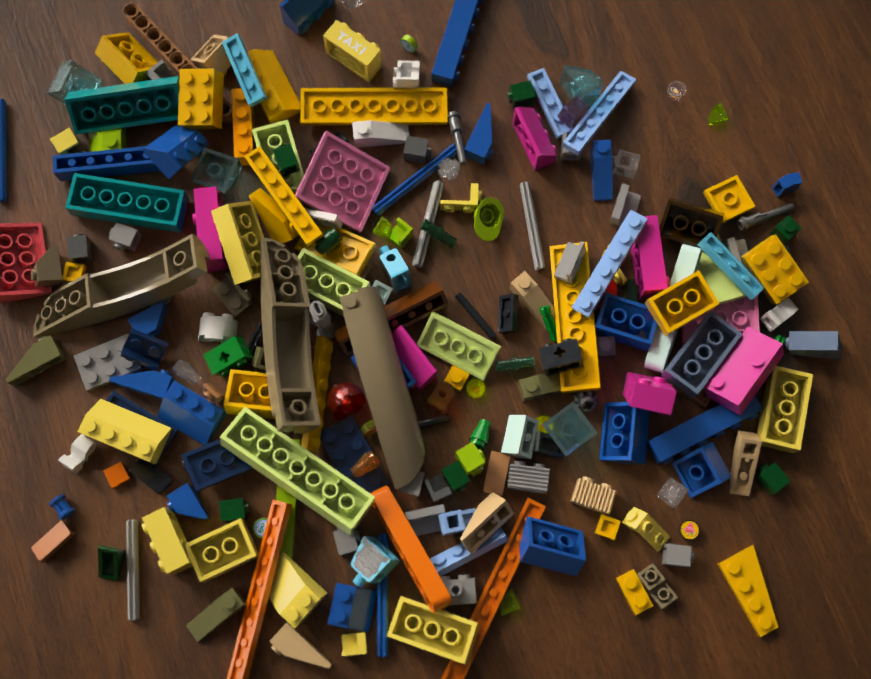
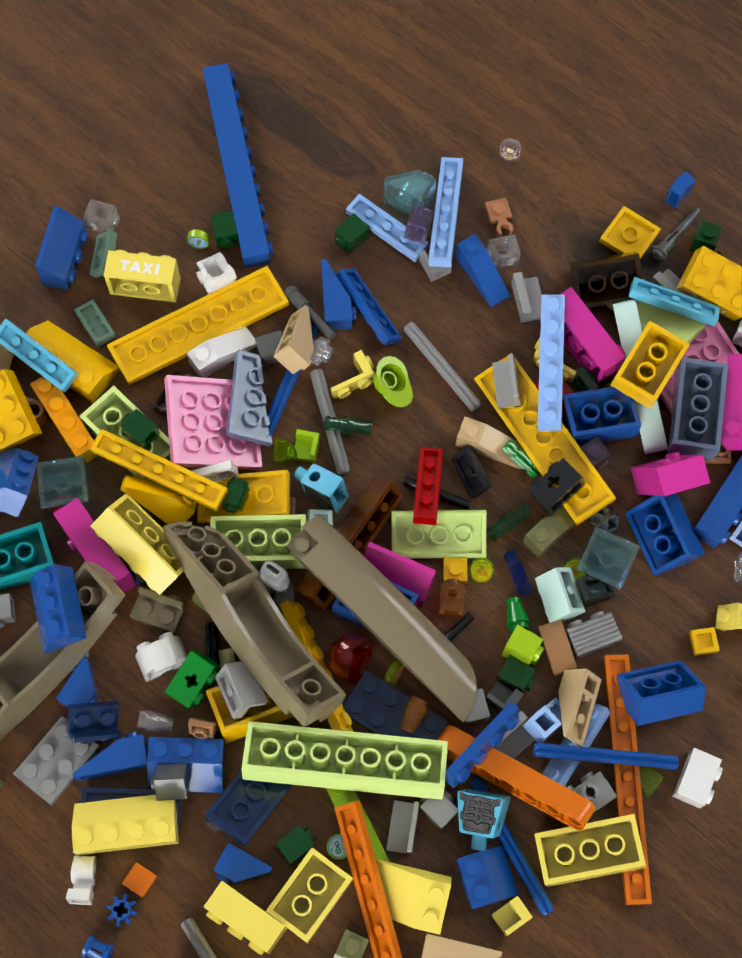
camera: 30 degrees left, 5 degrees down
(88, 491) = (125, 917): none -> blue gear
(151, 476) = (180, 858): black slope -> none
(157, 256) = (57, 607): none -> blue slope
(171, 419) = (170, 782): none -> dark grey brick
(252, 381) = (239, 689): none -> light grey panel
(303, 68) = (95, 323): none -> sand green plate
(314, 539) = (402, 827): none -> light grey panel
(342, 14) = (104, 242): none -> sand green plate
(373, 183) = (247, 401): none -> sand blue wing
(394, 514) = (478, 749): none -> blue plate
(430, 46) = (224, 229): none -> dark green brick
(434, 154) = (296, 342): none -> tan slope
(469, 307) = (428, 486): none -> red tile
(484, 569) = (605, 756): none -> blue axle
(500, 404) = (518, 572): none -> clear blue axle
(503, 154) = (369, 307): none -> blue plate
(533, 137) = (391, 272): dark pink slope -> none
(544, 622) = (698, 778): none -> white brick
(593, 496) = (671, 616): tan brick -> none
(639, 134) = (500, 214): none -> nougat plate
(717, 115) = (566, 154): clear neon green tile -> none

